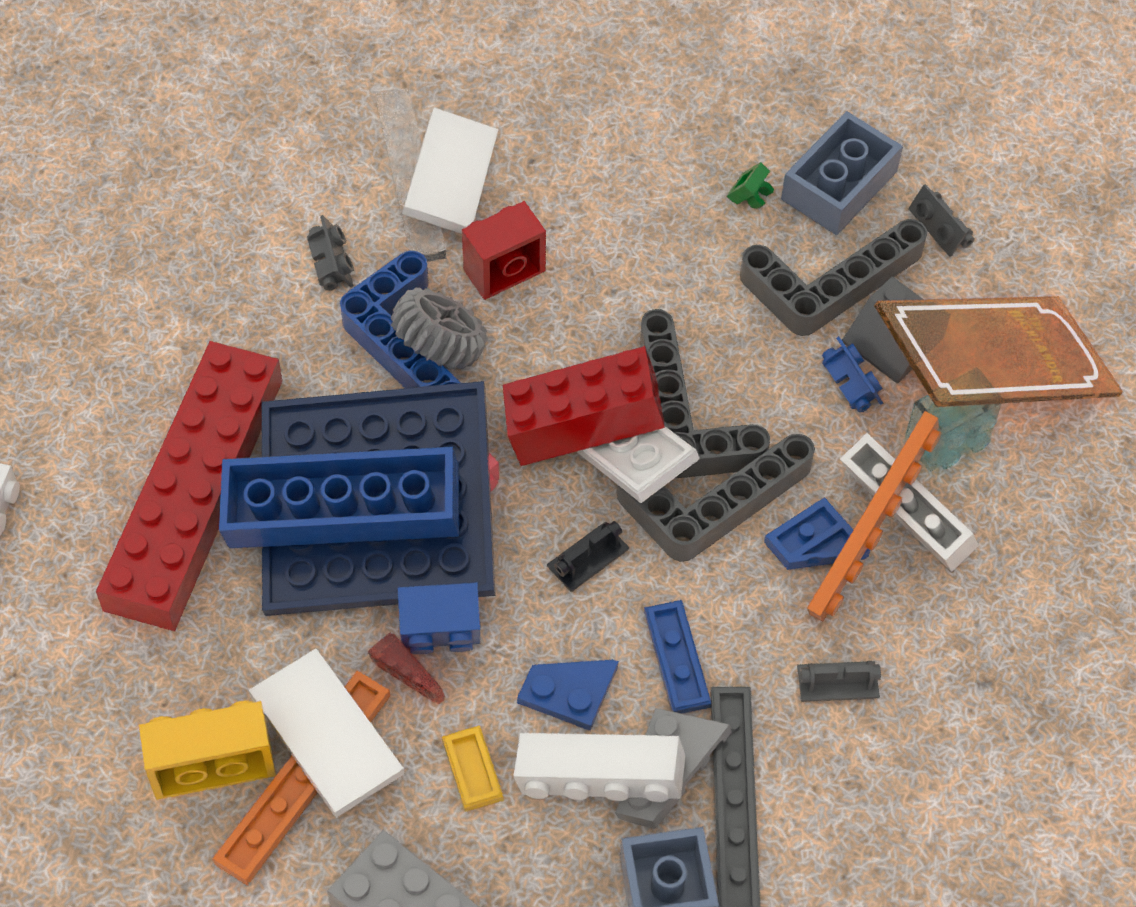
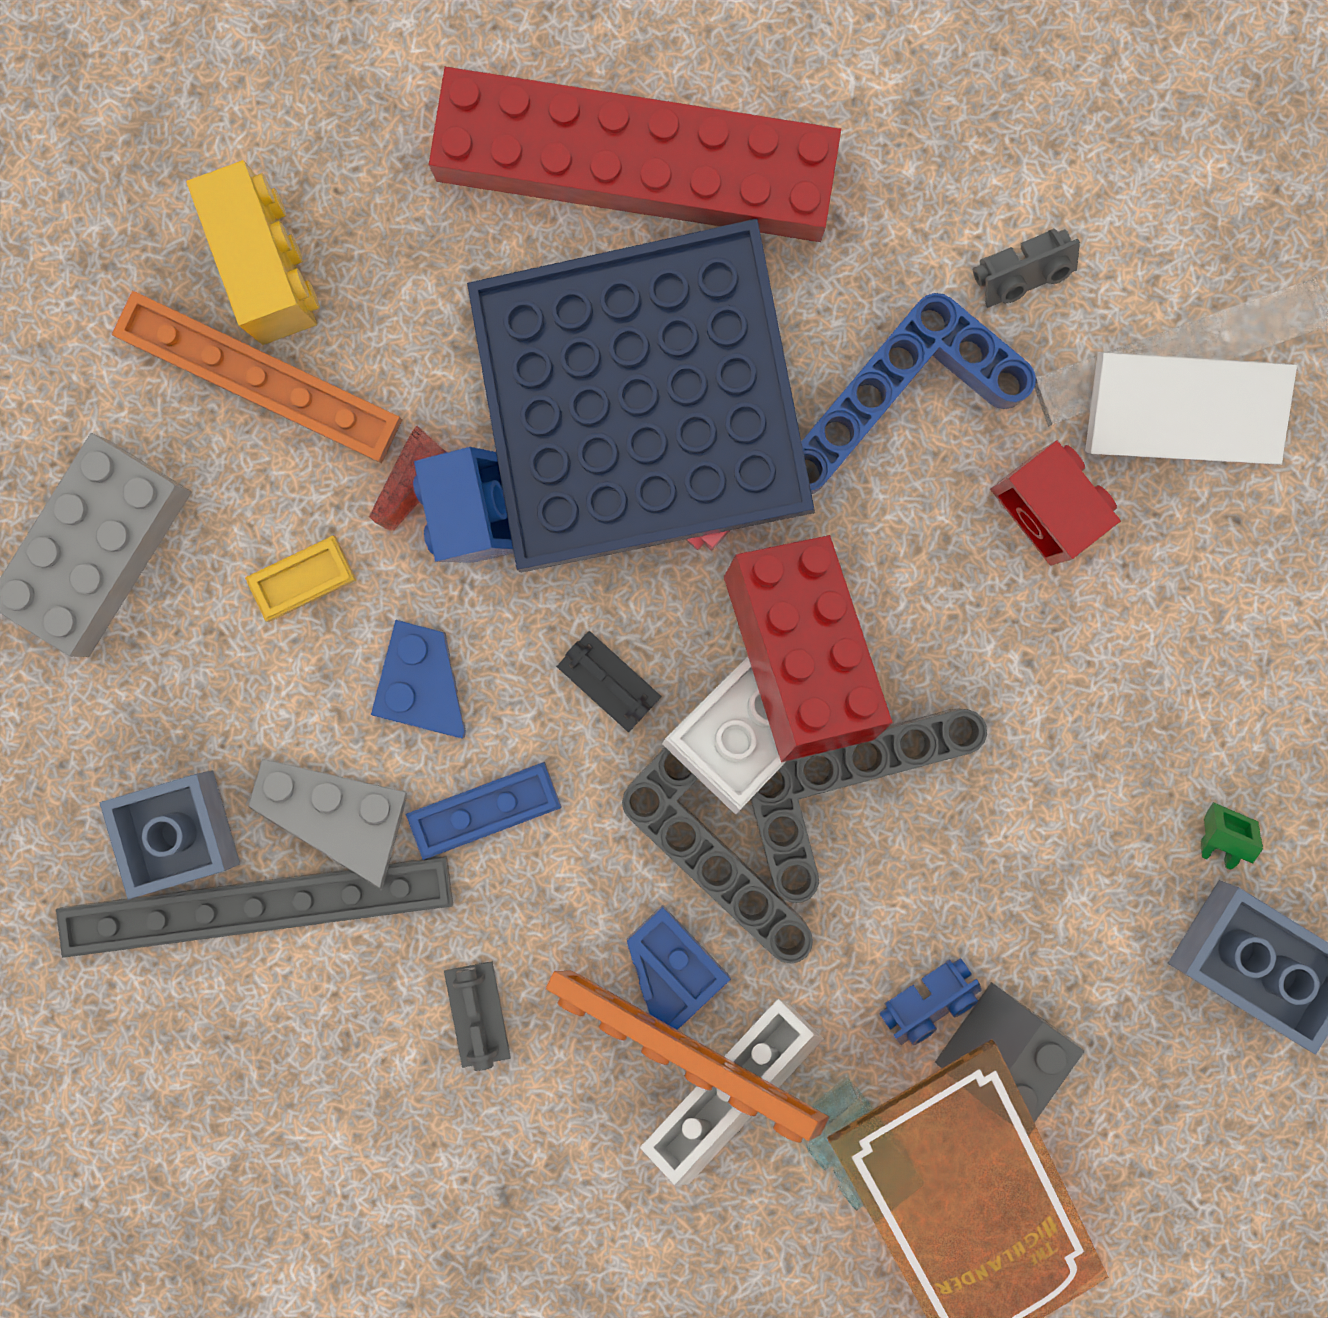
camera: 85 degrees right, 30 degrees up
(326, 732) = (304, 393): white tile -> none
(339, 497) = (603, 348): blue brick -> none
(439, 328) = (915, 404): light grey gear -> none
(600, 766) = (298, 735): white brick -> none
(872, 265) = (1078, 974): dark grey beam -> none
(939, 221) = (1224, 1096): dark grey hinge -> none

